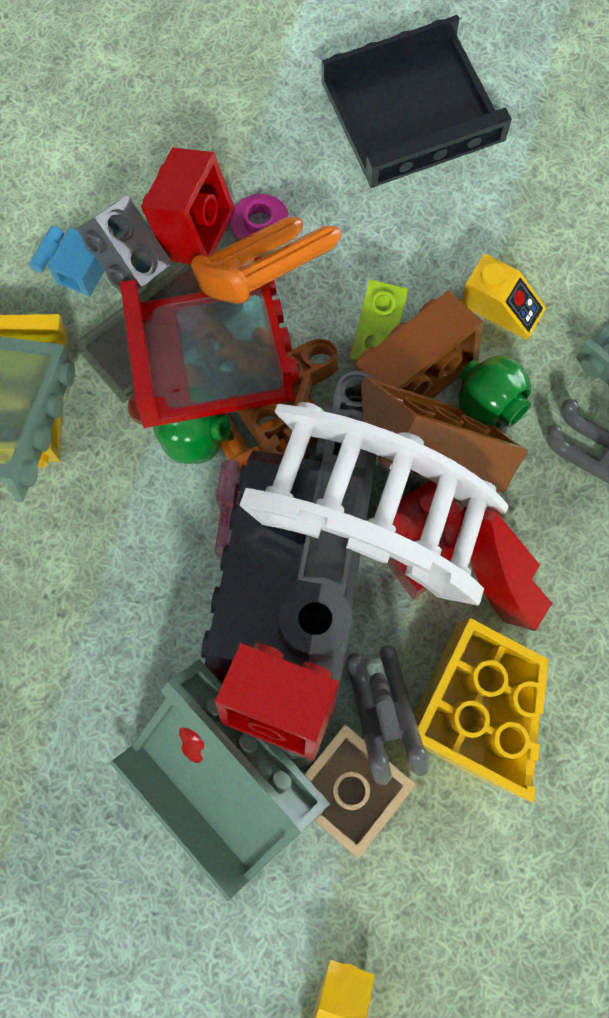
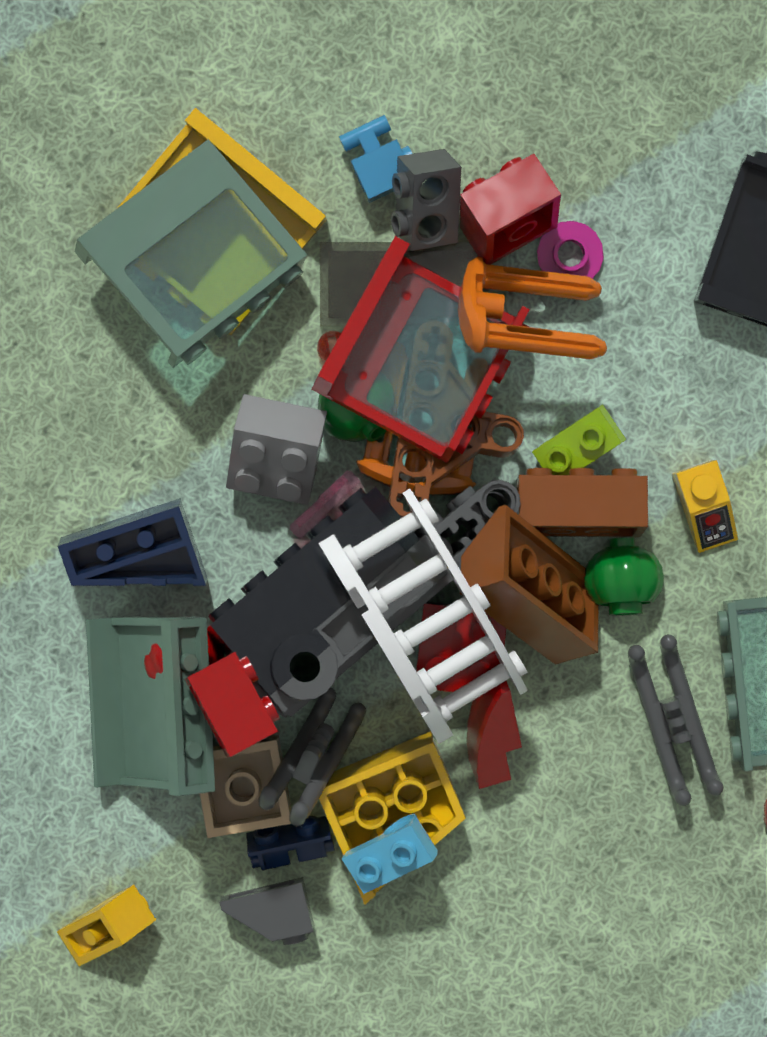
camera: 35 degrees right, 15 degrees up
(106, 671) = (135, 549): none -> dark blue wedge
(155, 501) = (275, 449): none -> light grey brick
(413, 821) = (270, 846): none -> dark blue hinge
(464, 877) = (273, 910): none -> dark grey slope
(520, 738) = (391, 855): none -> medium azure plate

